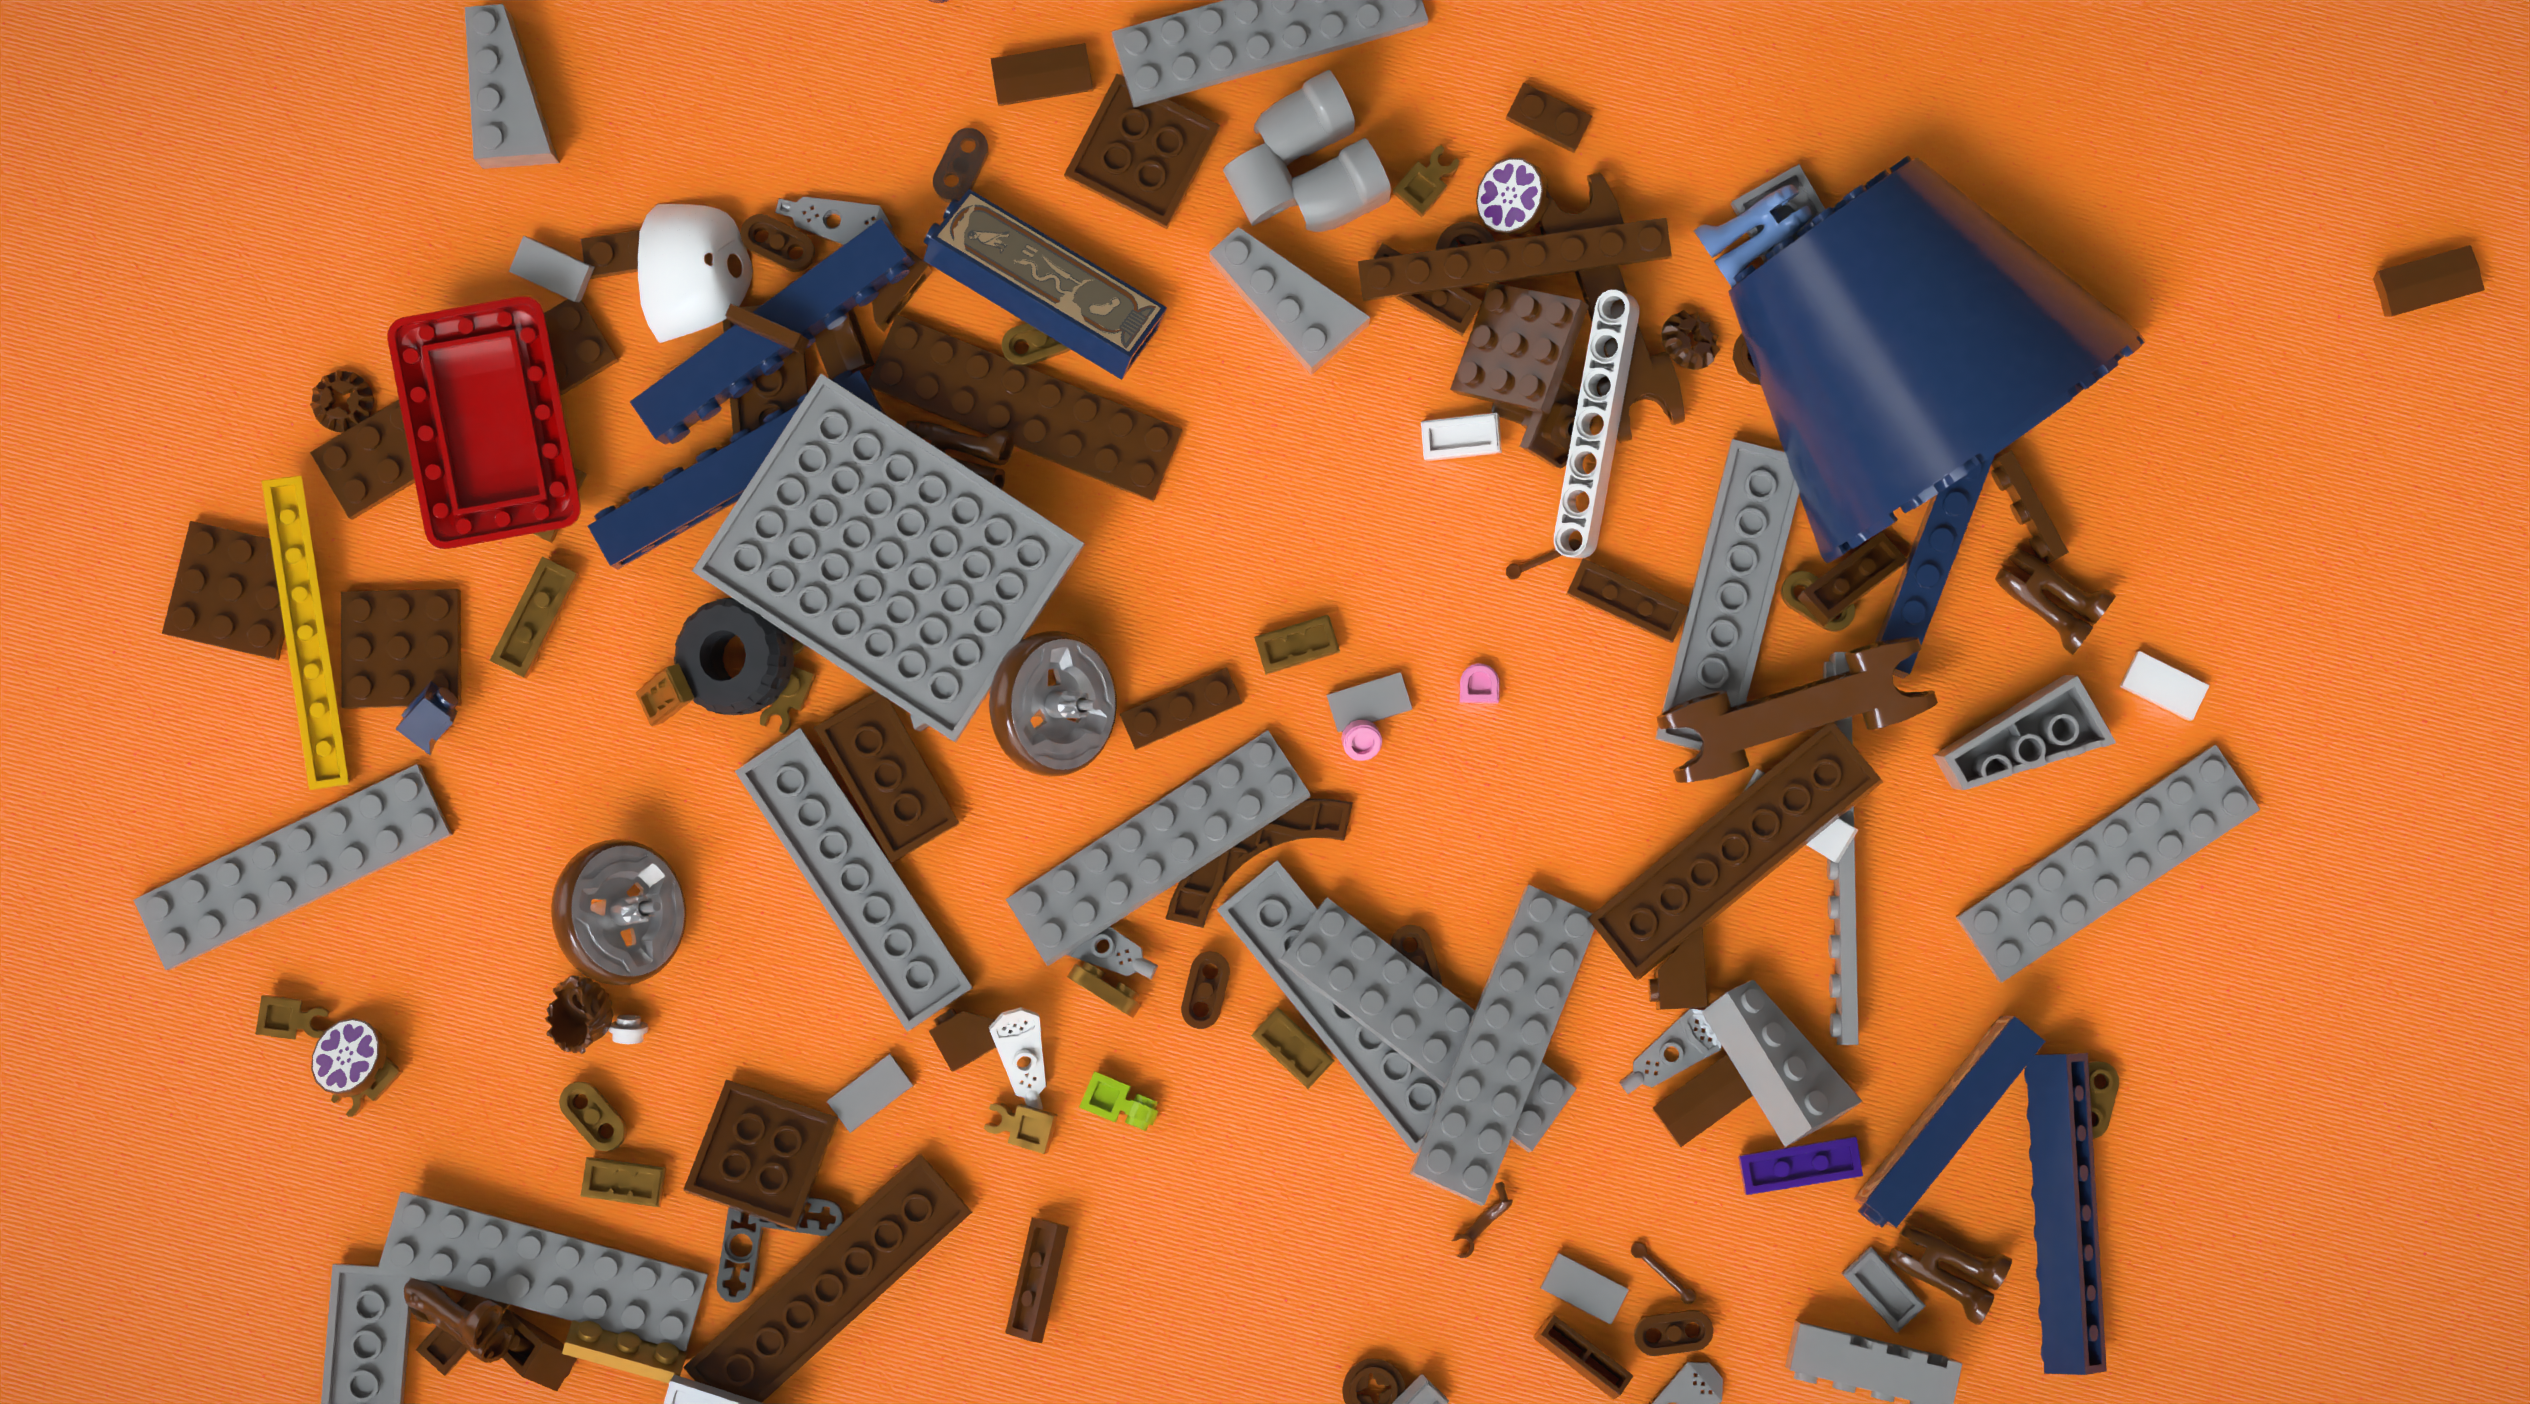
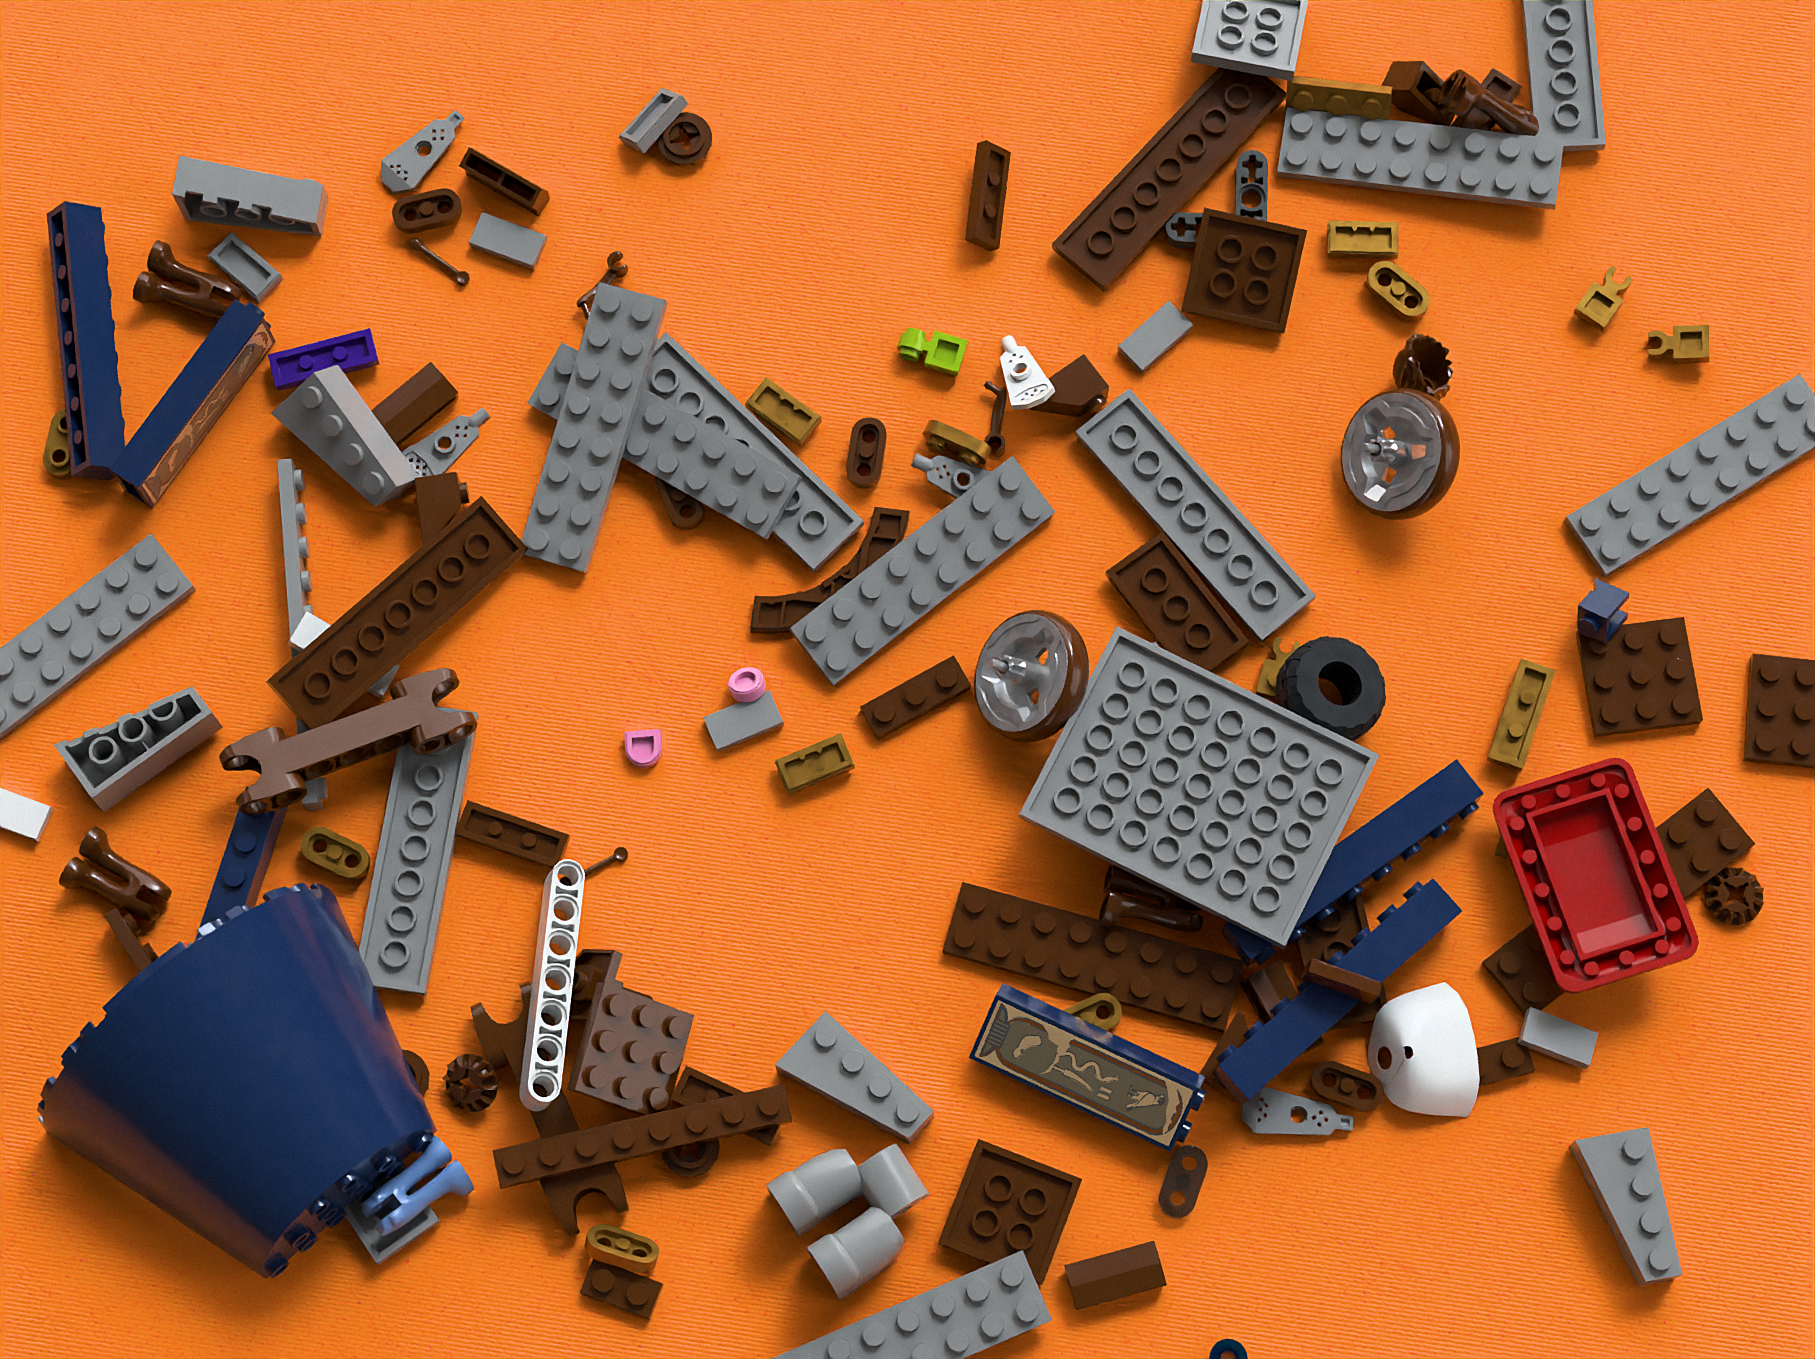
camera: 175 degrees right, 10 degrees down
(305, 632) = (1729, 676): yellow plate -> none
(348, 1057) = (1622, 313): tile -> none
(628, 1029) = (1377, 365): white plate -> none
(664, 695) = (1389, 652): pearl gold plate -> none
(1028, 1126) = (1011, 321): pearl gold plate -> none
(1057, 1019) = (997, 417): none -> reddish brown piece
(1423, 185) = (737, 1206): pearl gold plate -> none
(1461, 437) = (679, 970): white tile -> none
(1512, 196) = (649, 1201): tile -> none
(1546, 153) = (621, 1248): none -> pearl gold plate
(1852, 578) = (312, 860): reddish brown plate -> none

